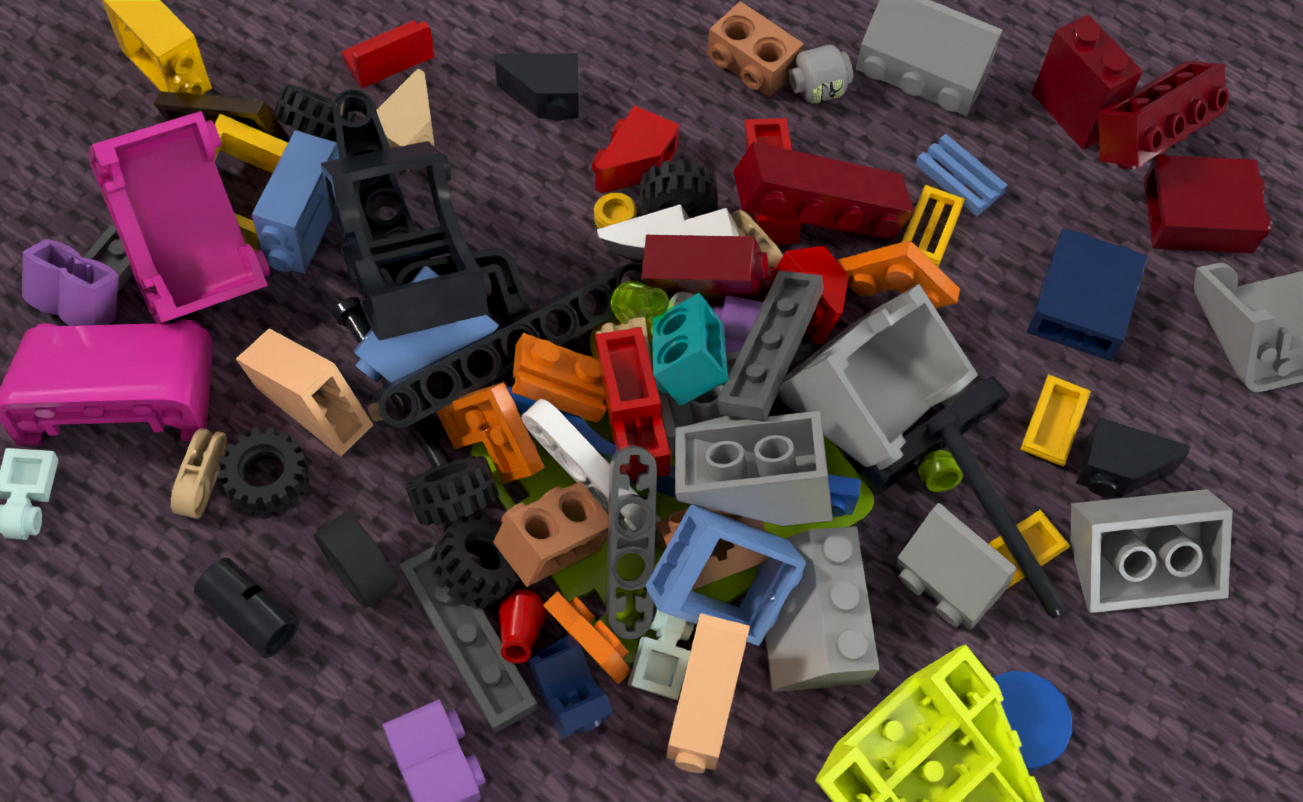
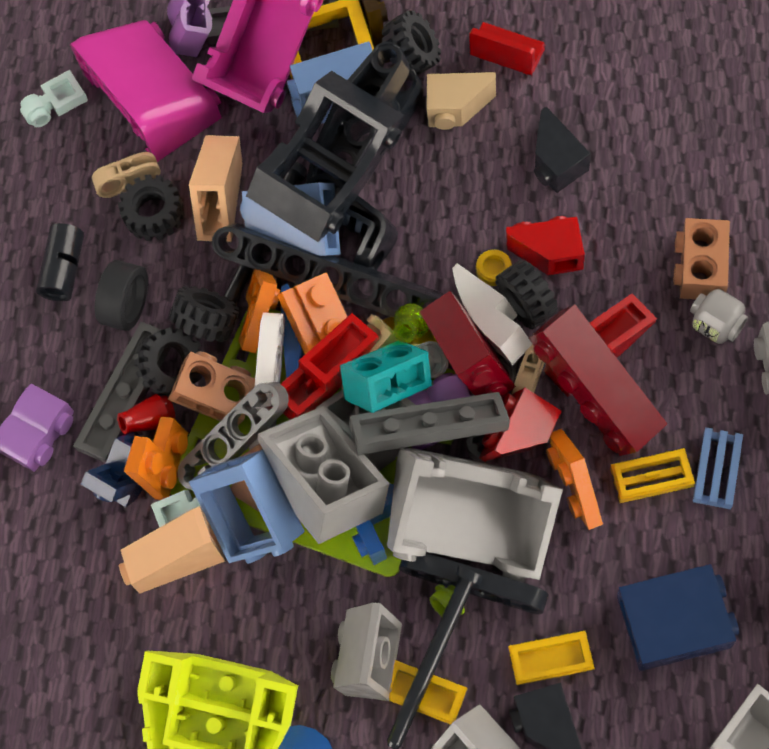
camera: 70 degrees right, 5 degrees up
(826, 620) = (280, 589): light grey slope -> none

